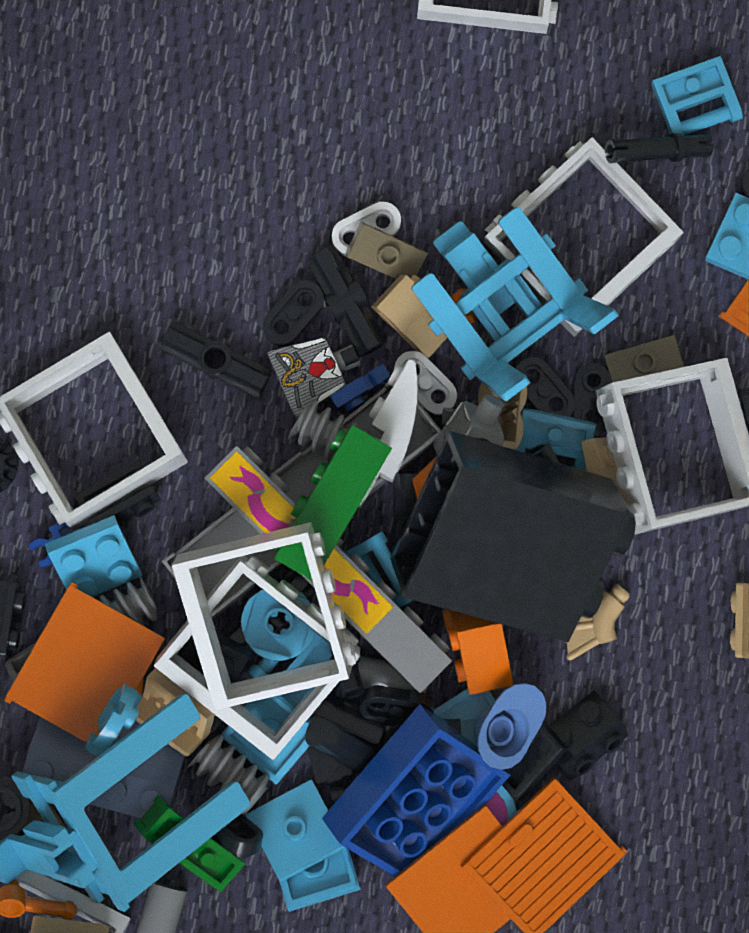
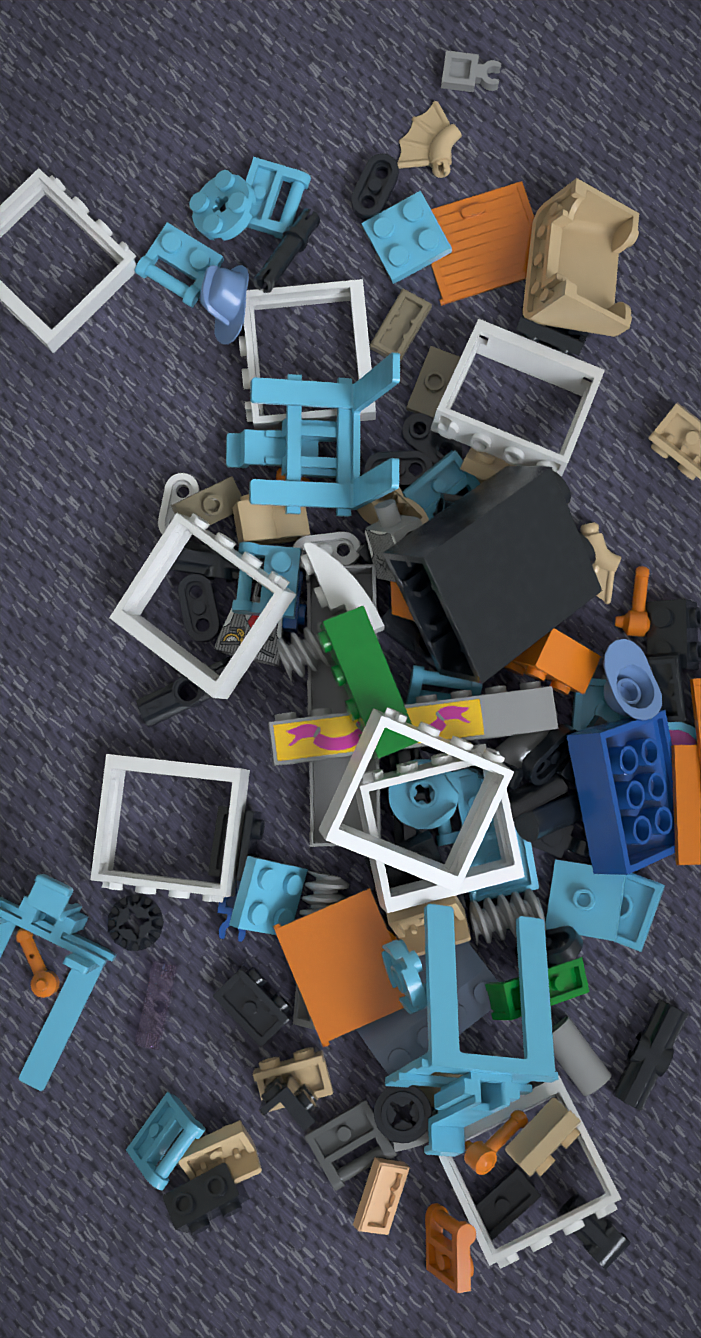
camera: 45 degrees left, 0 degrees up
(235, 326) = (151, 575): none -> white window
(366, 362) = (278, 559): none -> medium azure plate
(570, 693) = (636, 620): none -> orange piece
(574, 129) = (225, 299): none -> medium blue piece
(589, 65) = (184, 255): none -> medium azure plate
(651, 48) = (207, 203): none -> medium azure plate
(671, 296) = (401, 325): none -> dark tan plate

